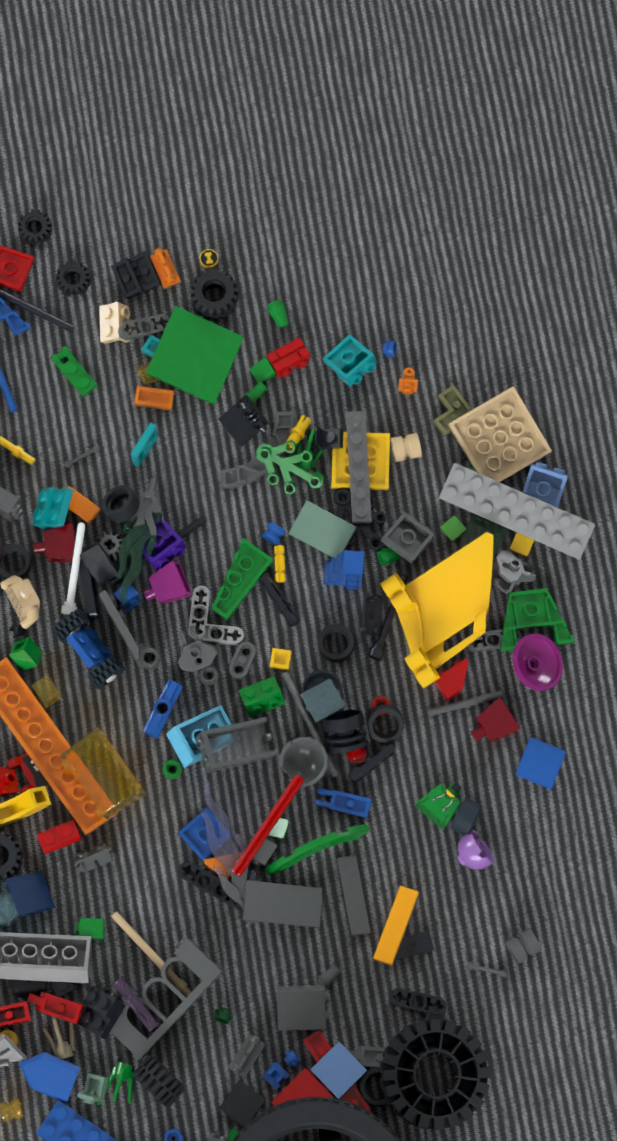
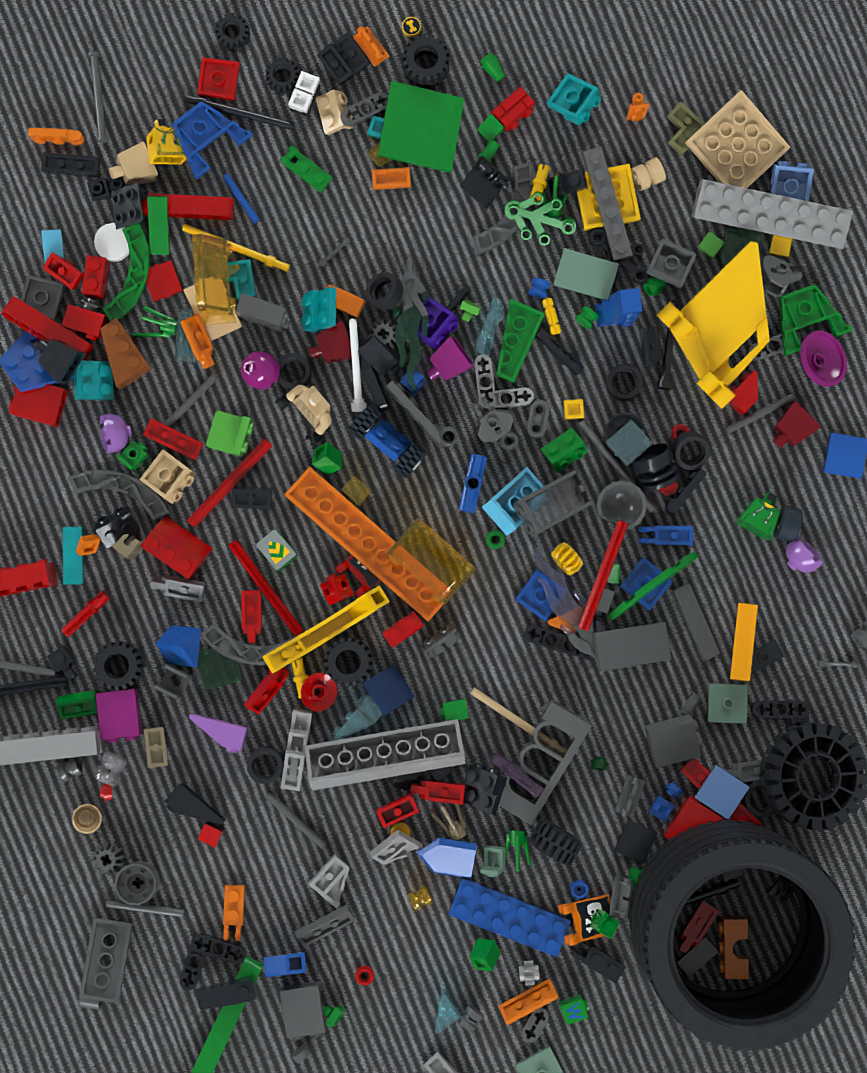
camera: 15 degrees left, 10 degrees up
(89, 300) = (304, 94): none -> white hips
(144, 445) = (394, 227): teal tile -> none
(200, 539) = (470, 309): none -> bright green tile
(209, 568) = (486, 334): none -> clear light blue piece
(238, 803) = (567, 558): none -> yellow gear
(309, 833) = (641, 575): none -> blue tile
(313, 572) = (586, 317): none -> green wheel
(366, 984) = (727, 703): none -> sand green plate
(390, 348) = (609, 79): blue plate -> none

